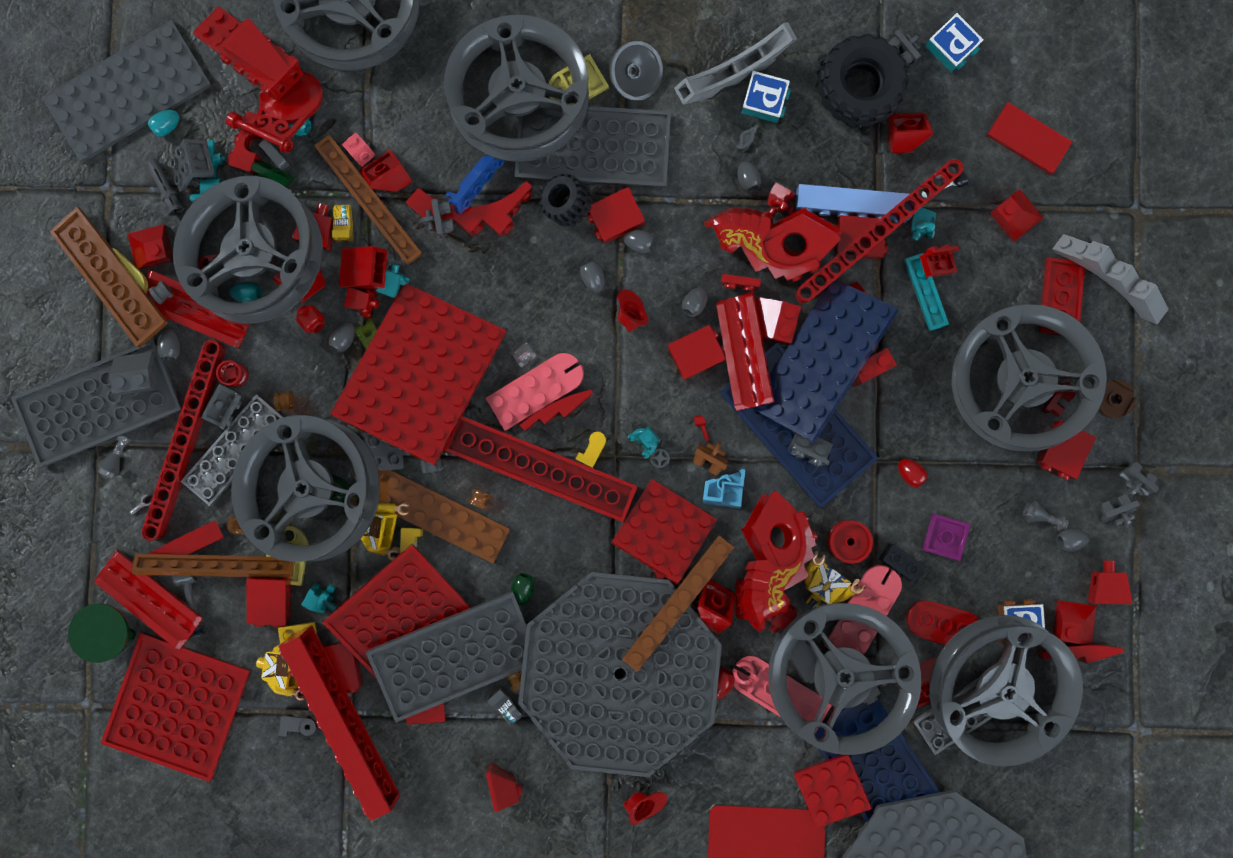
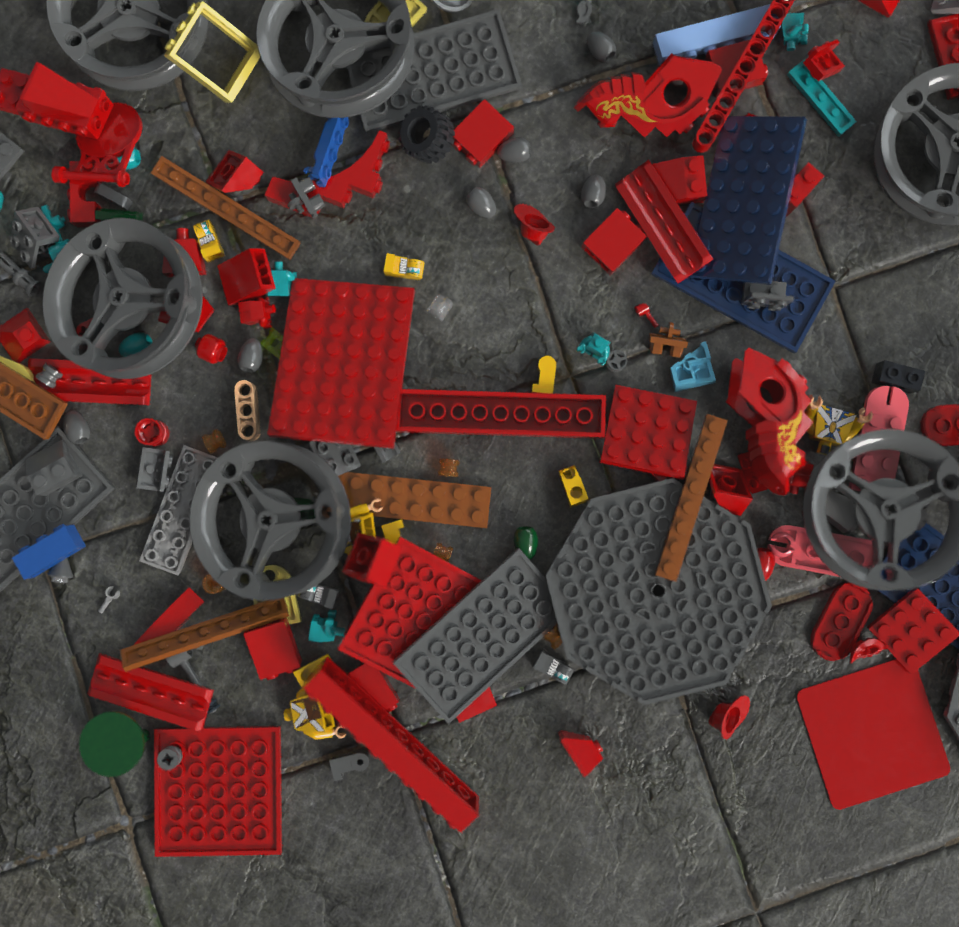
camera: 20 degrees left, 0 degrees up
(105, 445) = (48, 551): none -> blue brick
(149, 662) = (172, 753): none -> dark grey wheel
(176, 447) = (121, 527): red beam -> none
(324, 394) = (243, 401): none -> light nougat beam
(328, 569) = (322, 595): none -> dark grey leg
(358, 149) = (197, 161): coral bracket -> none
(379, 557) = (372, 559): none -> red brick
(426, 85) = (243, 70): none -> light yellow window
(446, 570) = (443, 552): none -> clear orange wheel
(504, 308) = (403, 267): none -> yellow leg
(535, 390) = (466, 337): coral plate -> none
(564, 406) = (499, 344): red slope -> none
(581, 554) = (573, 486): none -> yellow leg
(746, 283) = (639, 154): red plate -> none
(772, 760) = (841, 621): none -> red tile
(779, 200) = (641, 56): red piece -> none
(785, 790) = (866, 648): none -> red hat
(849, 553) = (841, 362): red wheel -> none
(912, 472) = (875, 283): red animal -> none
(946, 537) = (932, 335): magenta plate -> none

